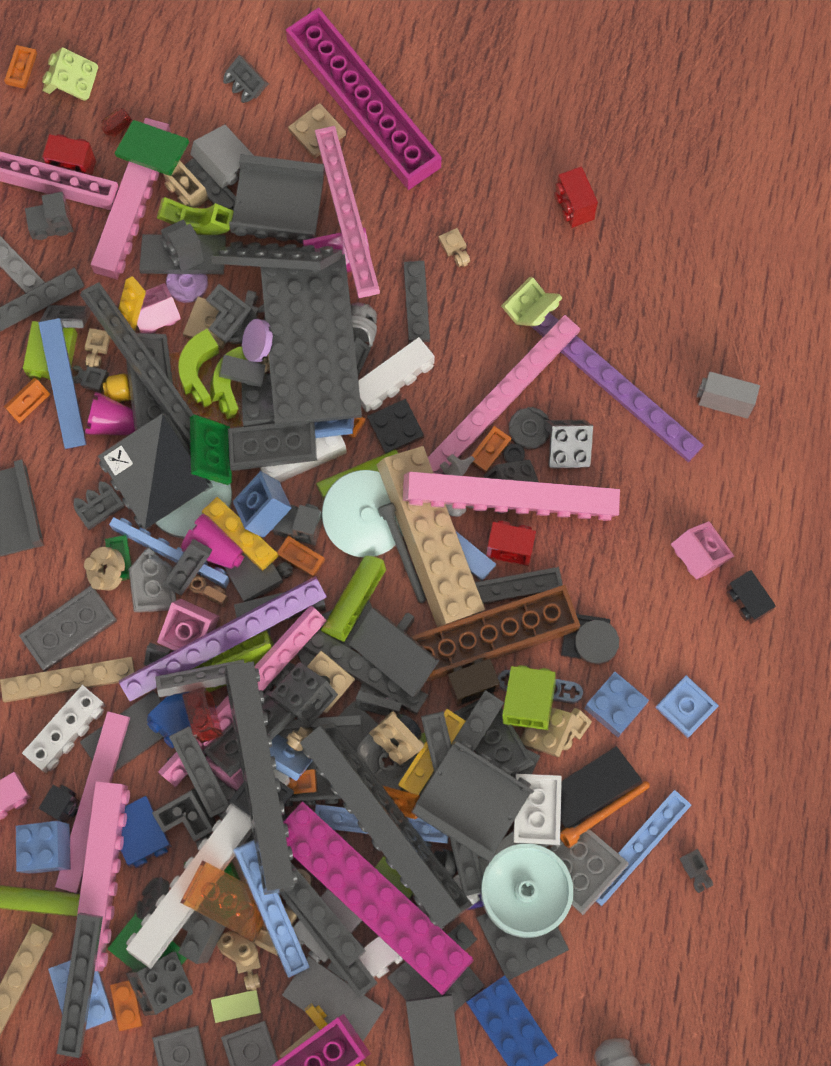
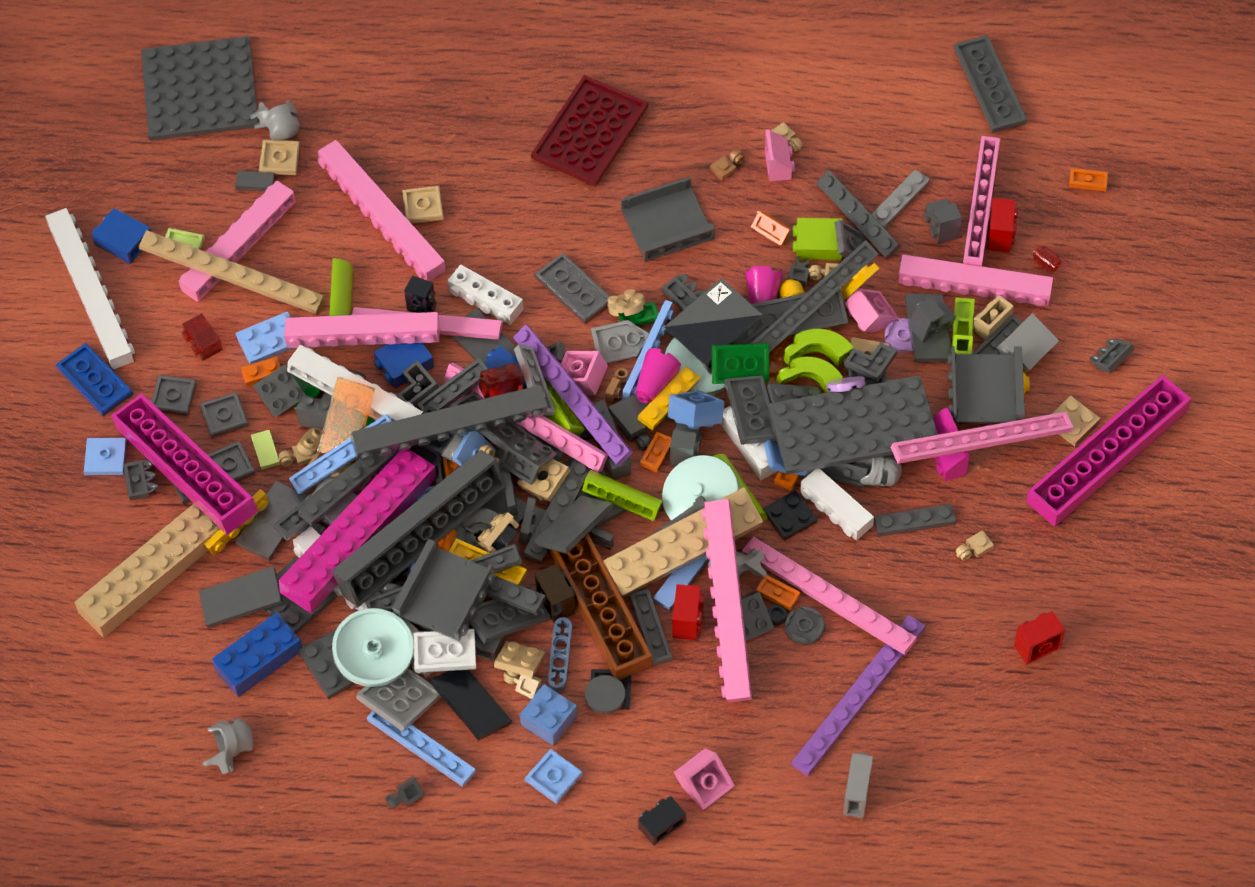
camera: 85 degrees right, 15 degrees down
(42, 847) = (384, 290): medium blue brick -> none
(62, 383) = (789, 246): medium blue tile -> none
(66, 679) = (529, 292): tan plate -> none
(70, 74) = (1087, 218): yellowish green bracket -> none
(79, 985) = (272, 324): dark grey plate -> none
(151, 147) = (1021, 283): green tile -> none
(187, 567) = (631, 358): dark grey plate -> none
(242, 370) = (817, 377): dark grey tile -> none
(277, 256) = (927, 388): dark grey plate -> none
(462, 936) = (331, 610): dark grey plate -> none
(529, 697) = (544, 636): lime brick -> none
(530, 304) = (926, 609): yellowish green bracket -> none
(569, 443) = (792, 654): bracket -> none
(570, 835) = (424, 682): orange piece -> none

